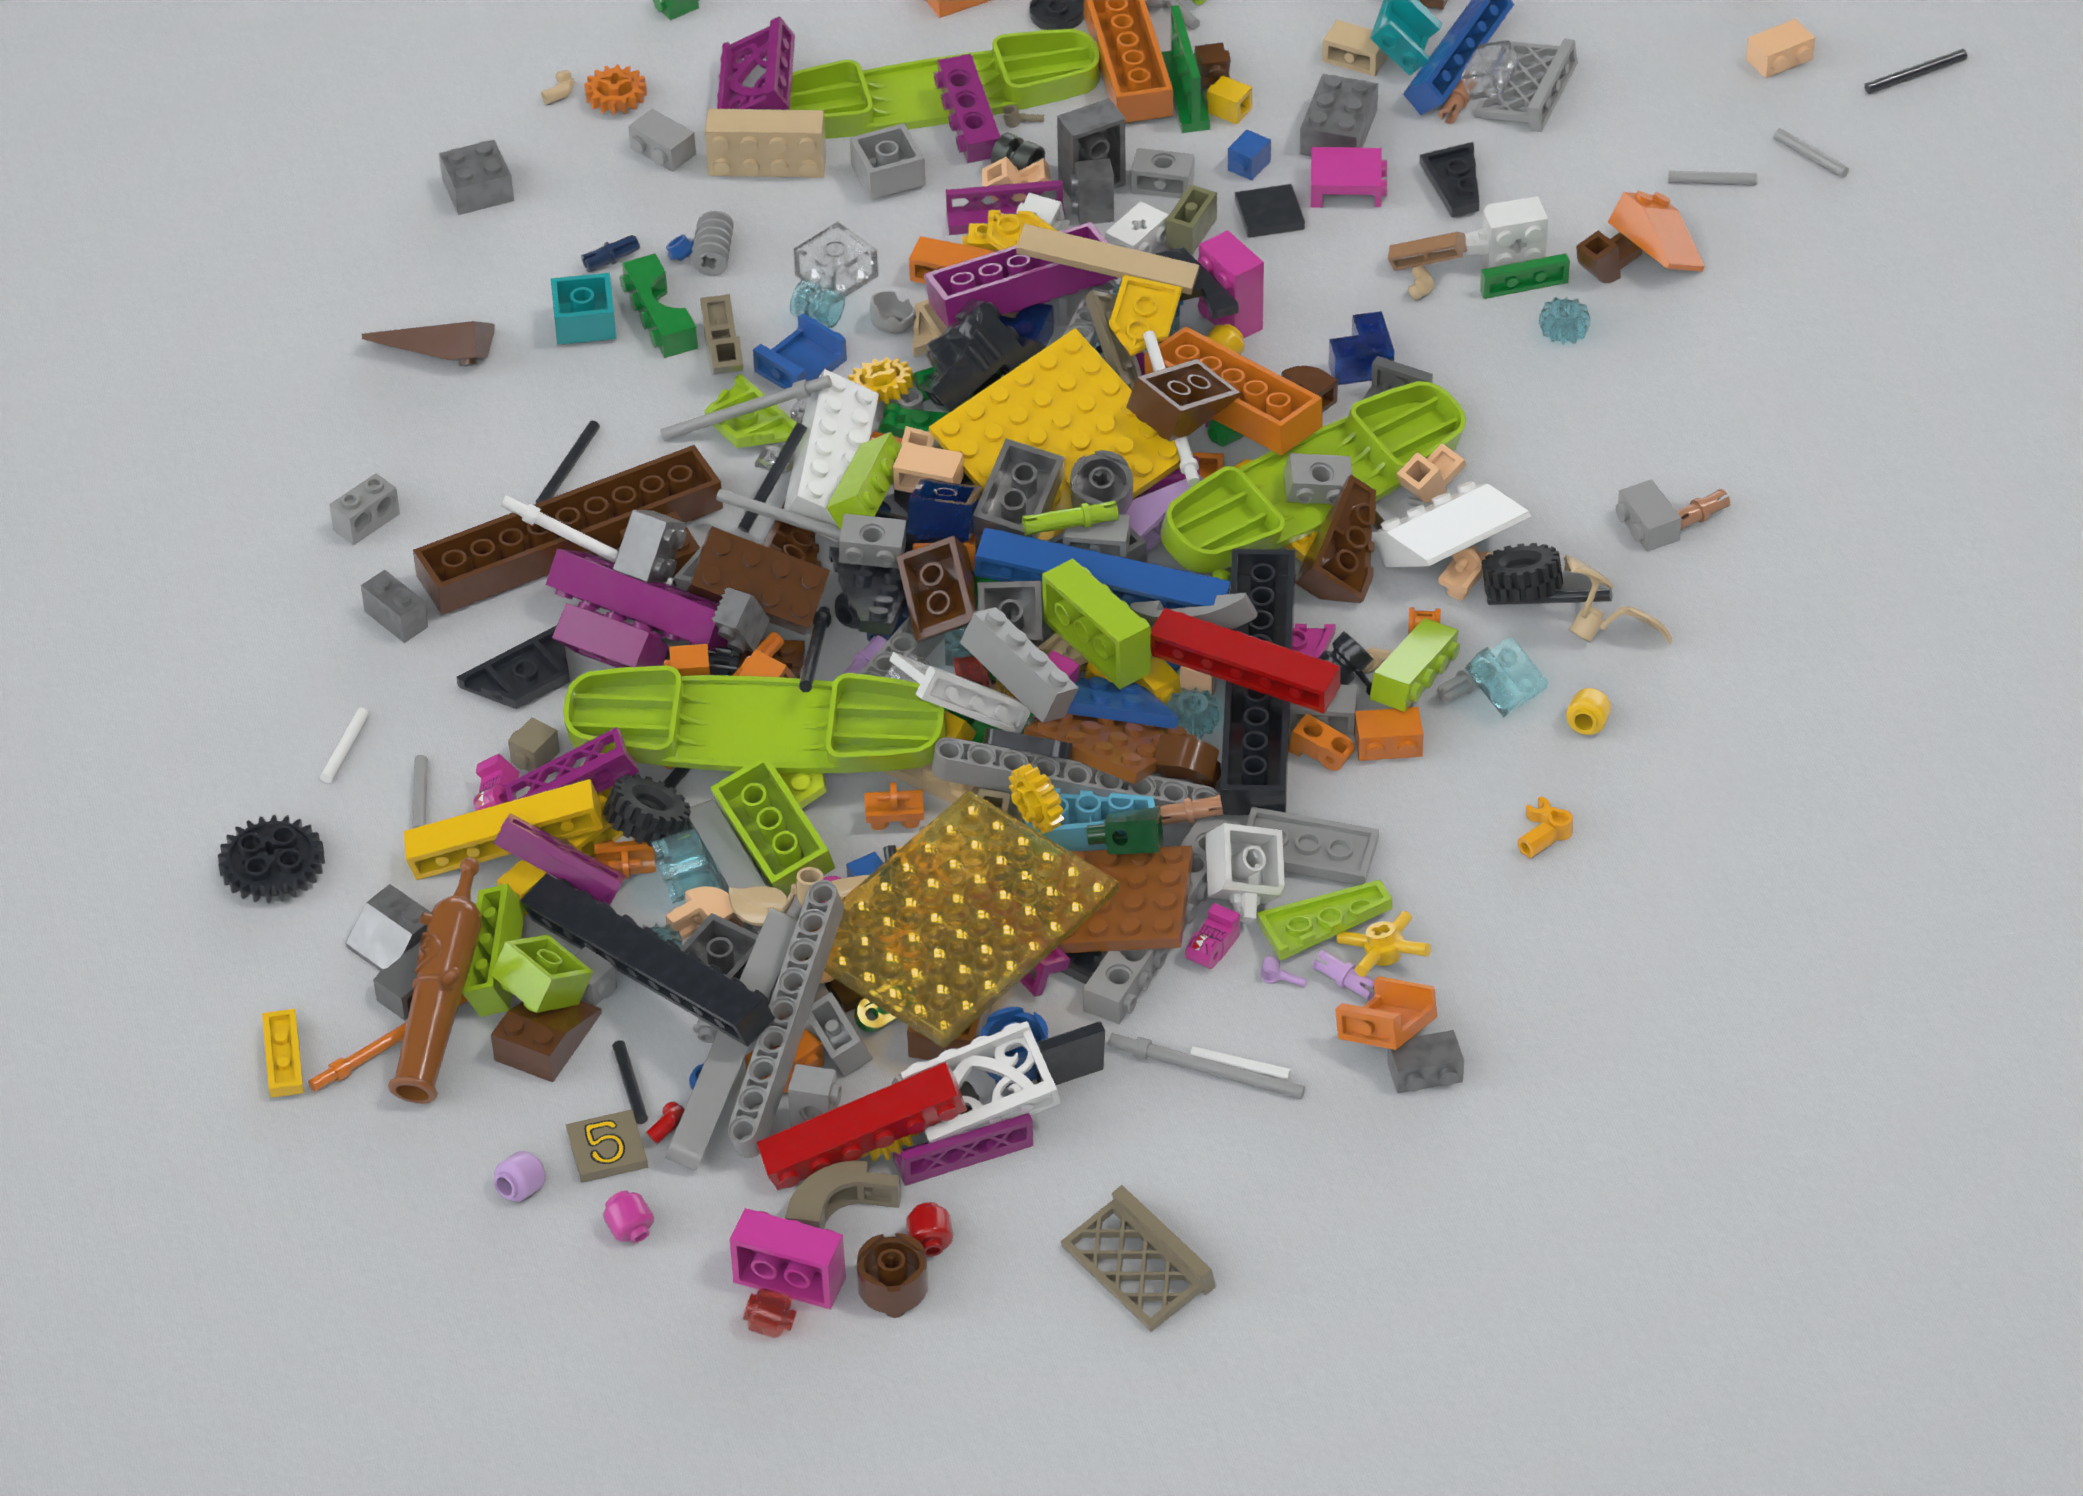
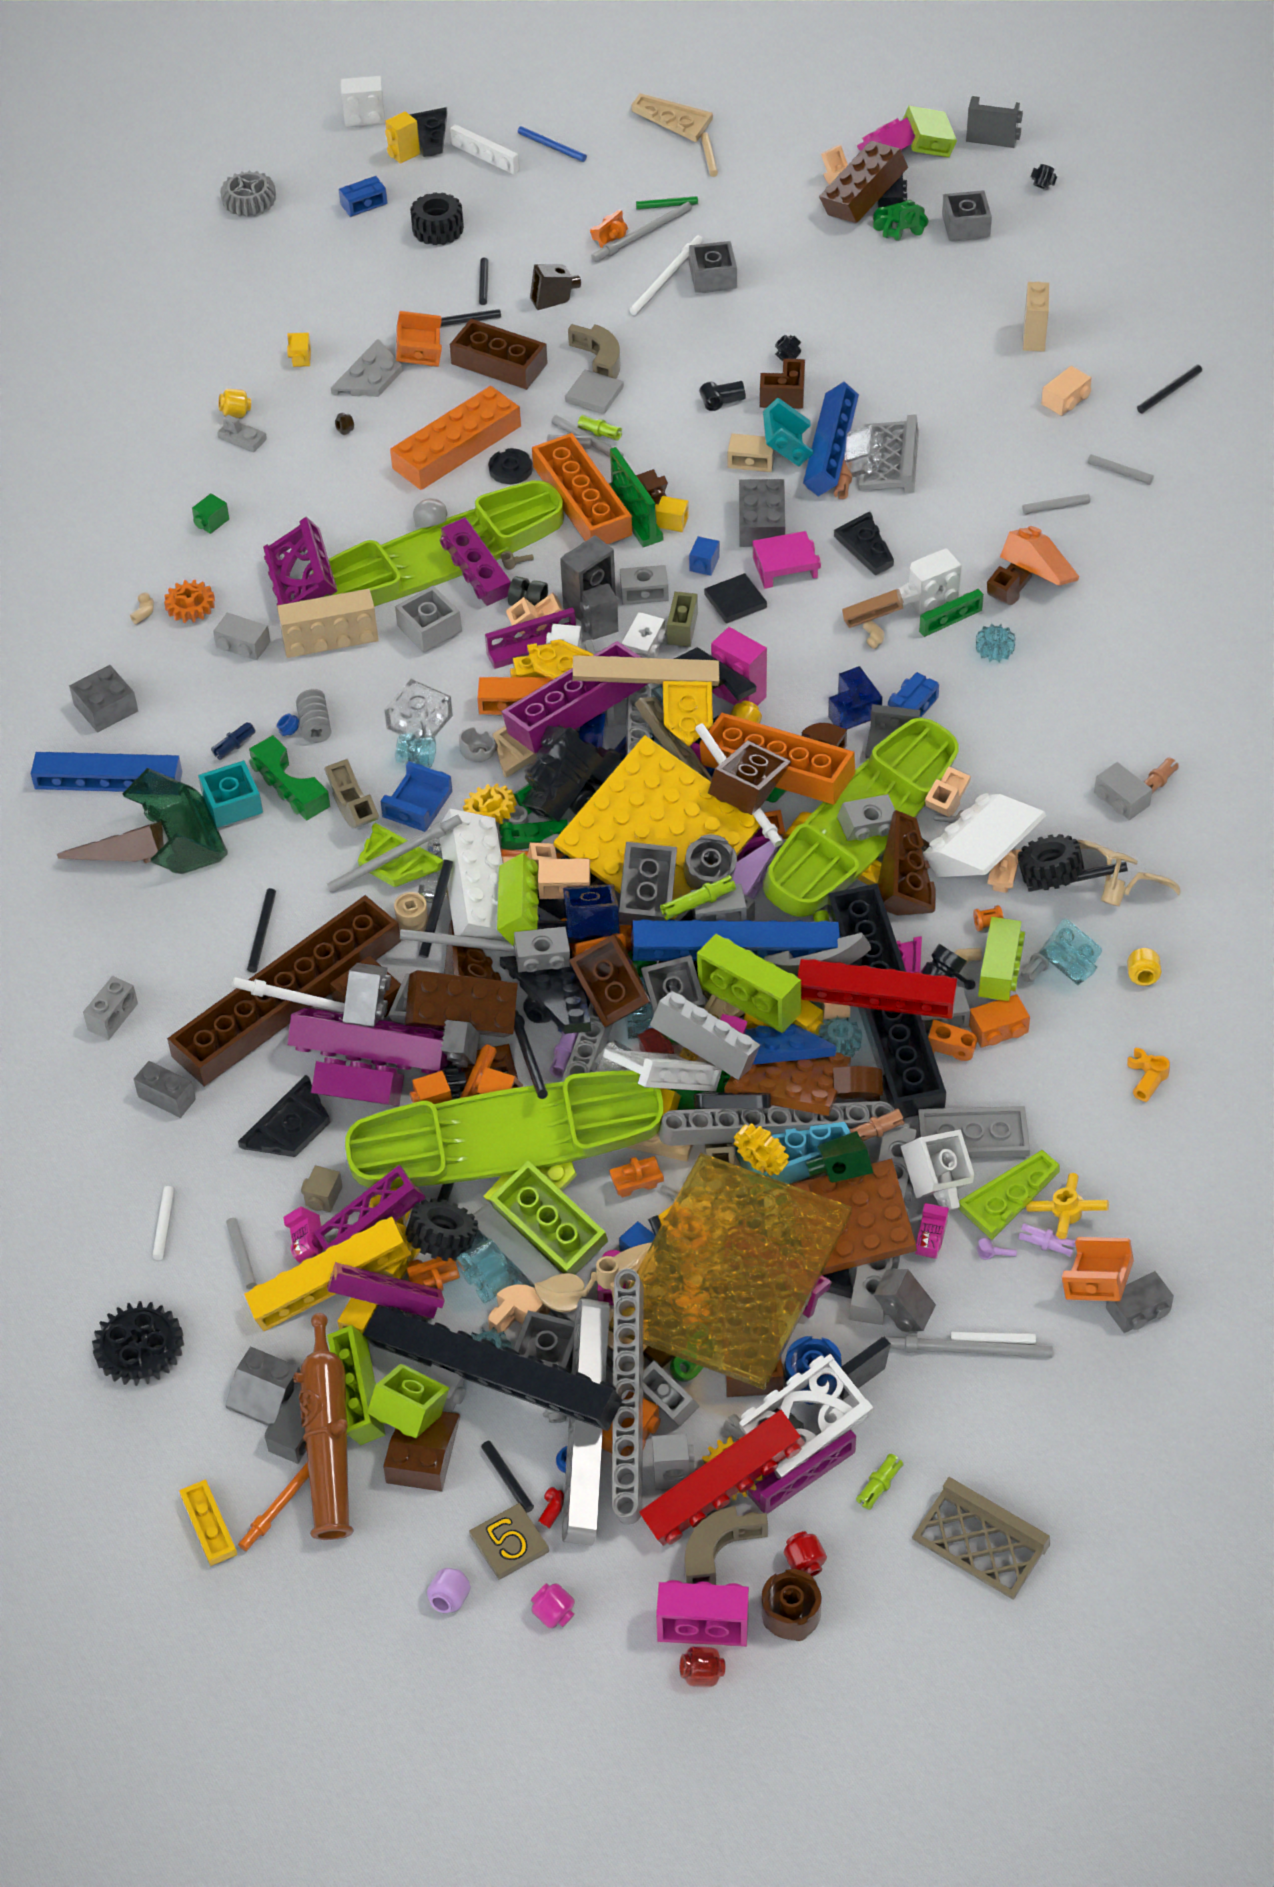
camera: 15 degrees left, 5 degrees up
(451, 258) = (97, 770): none -> blue brick
(525, 334) = (185, 819): none -> clear green windscreen
(742, 474) = (411, 912): none -> tan wheel
(936, 43) = (429, 513): none -> light grey hair
(1046, 1177) = (879, 1481): none -> lime pin
(1146, 996) = (904, 1300): none -> flat silver brick
(1443, 358) = (916, 694): none -> blue brick

